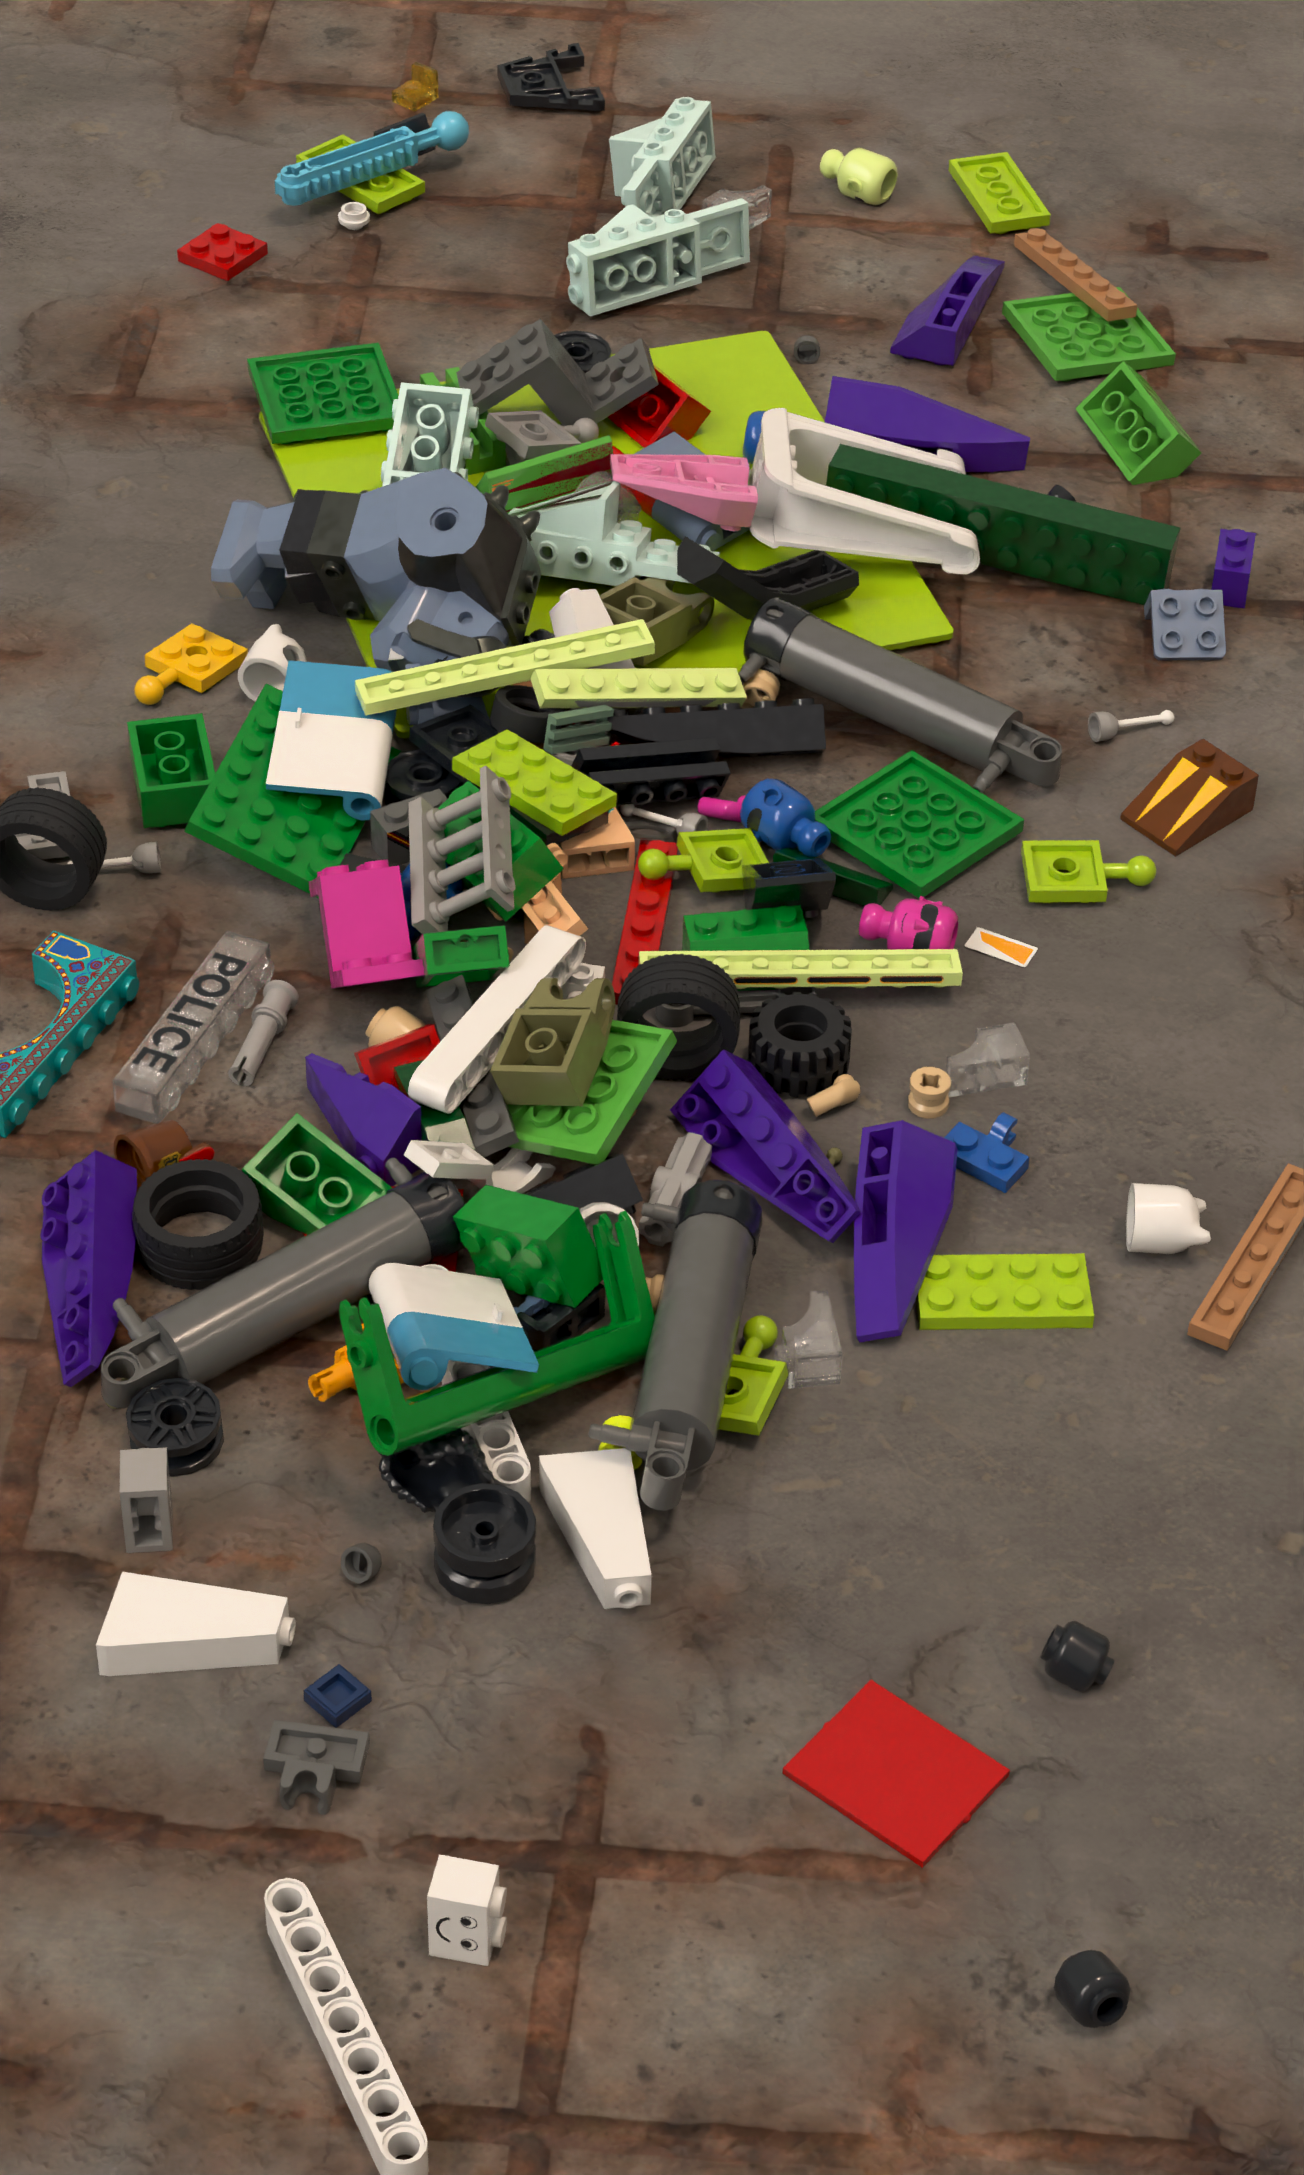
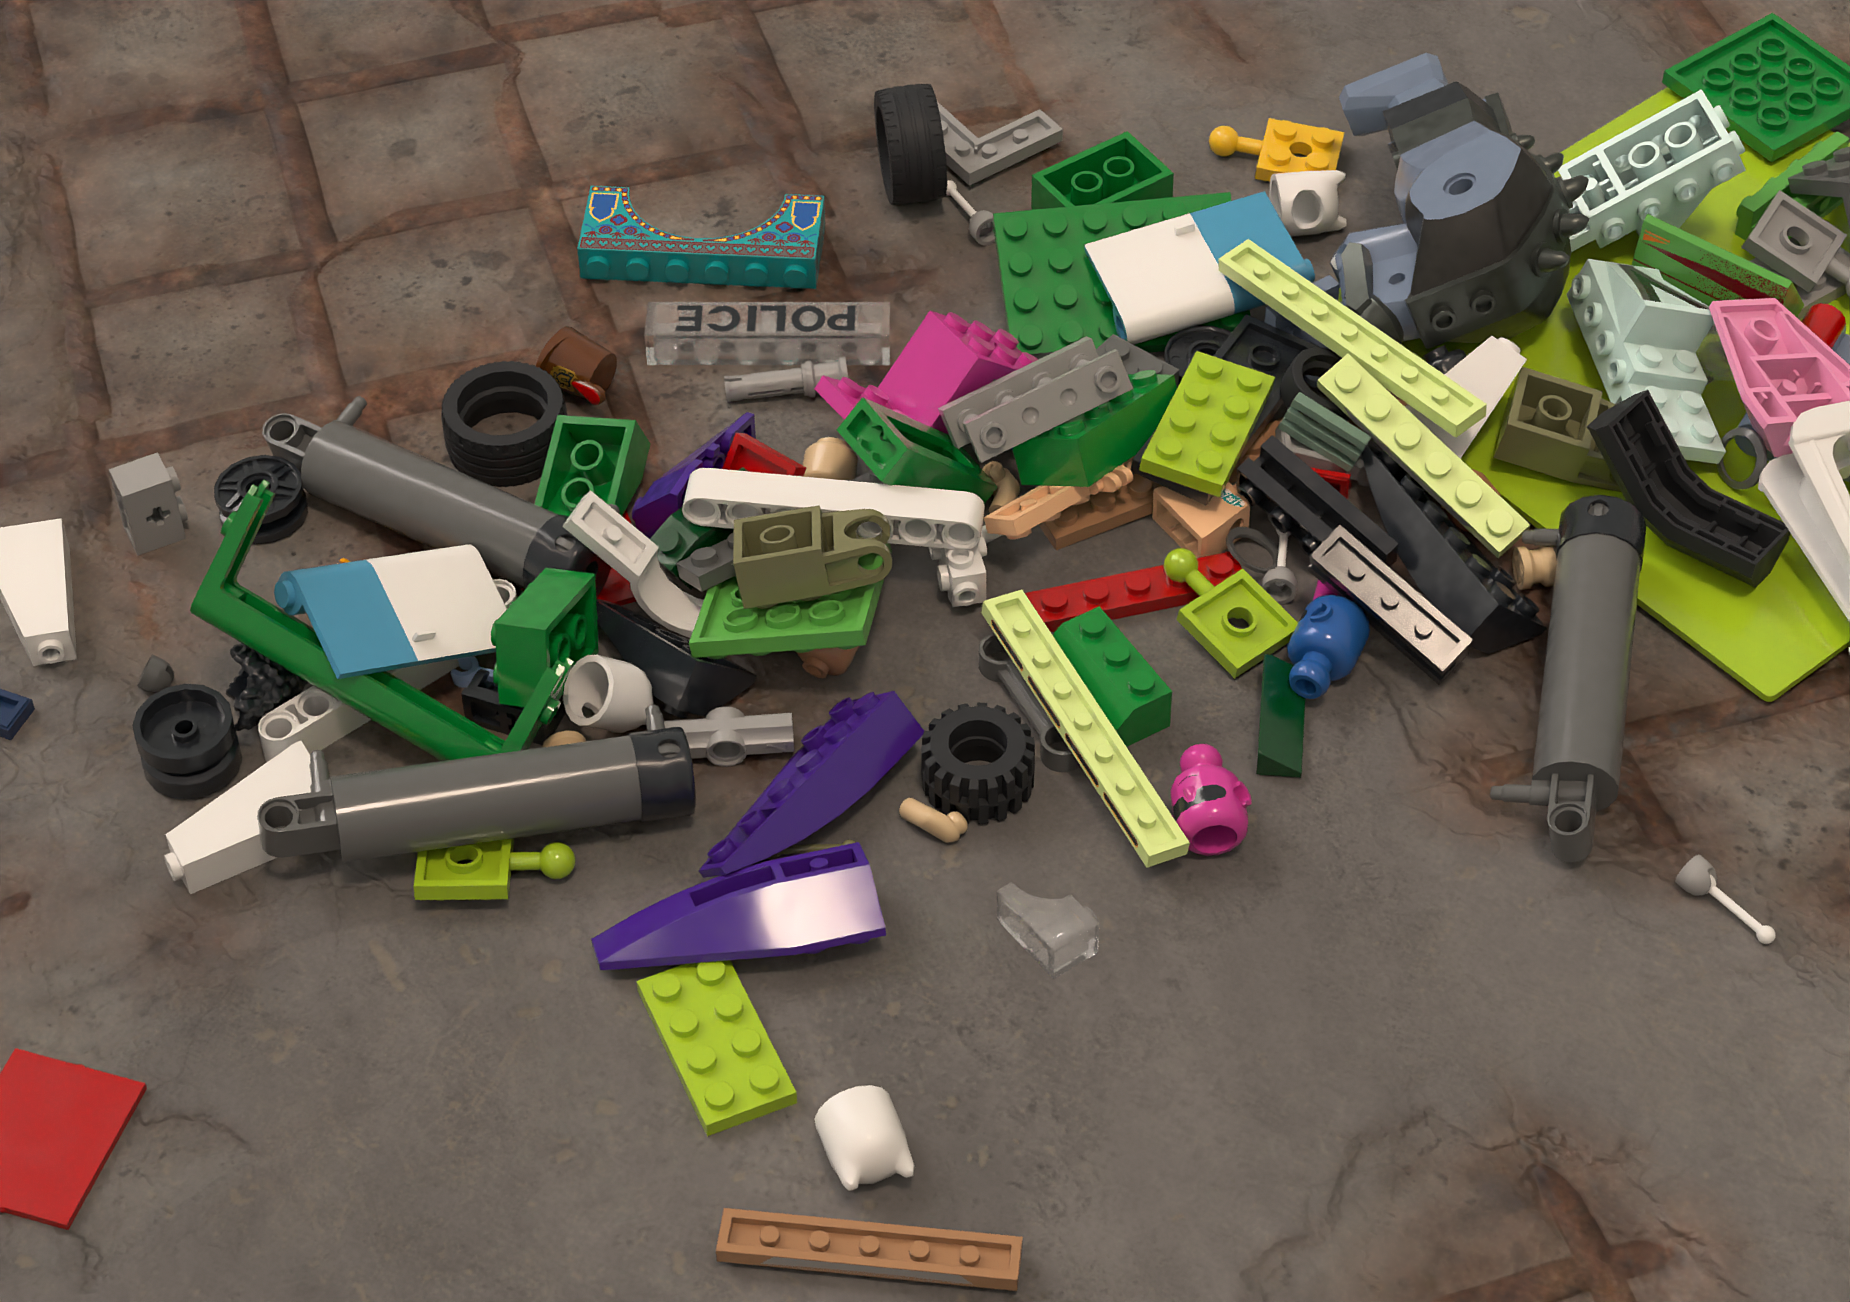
camera: 70 degrees right, 5 degrees up
(87, 1257) = (428, 371): dark purple wedge -> none
(691, 982) = (929, 645): black tyre -> none
(739, 528) = (1761, 458): none -> dark grey piece
(789, 884) = (1197, 669): black slope -> none
(799, 760) = (1390, 604): none -> brick
(812, 1346) = (557, 905): clear arch -> none
(917, 823) = (1407, 761): green plate -> none
(929, 1092) = (982, 902): tan wheel -> none
(989, 1155) = (913, 967): blue plate -> none
(1001, 947) = (1262, 896): sticker -> none
(1077, 1656) = (214, 1233): black head -> none
(1086, 871) = (1405, 935): lime plate -> none
(1192, 798) = (1614, 992): reddish brown slope -> none

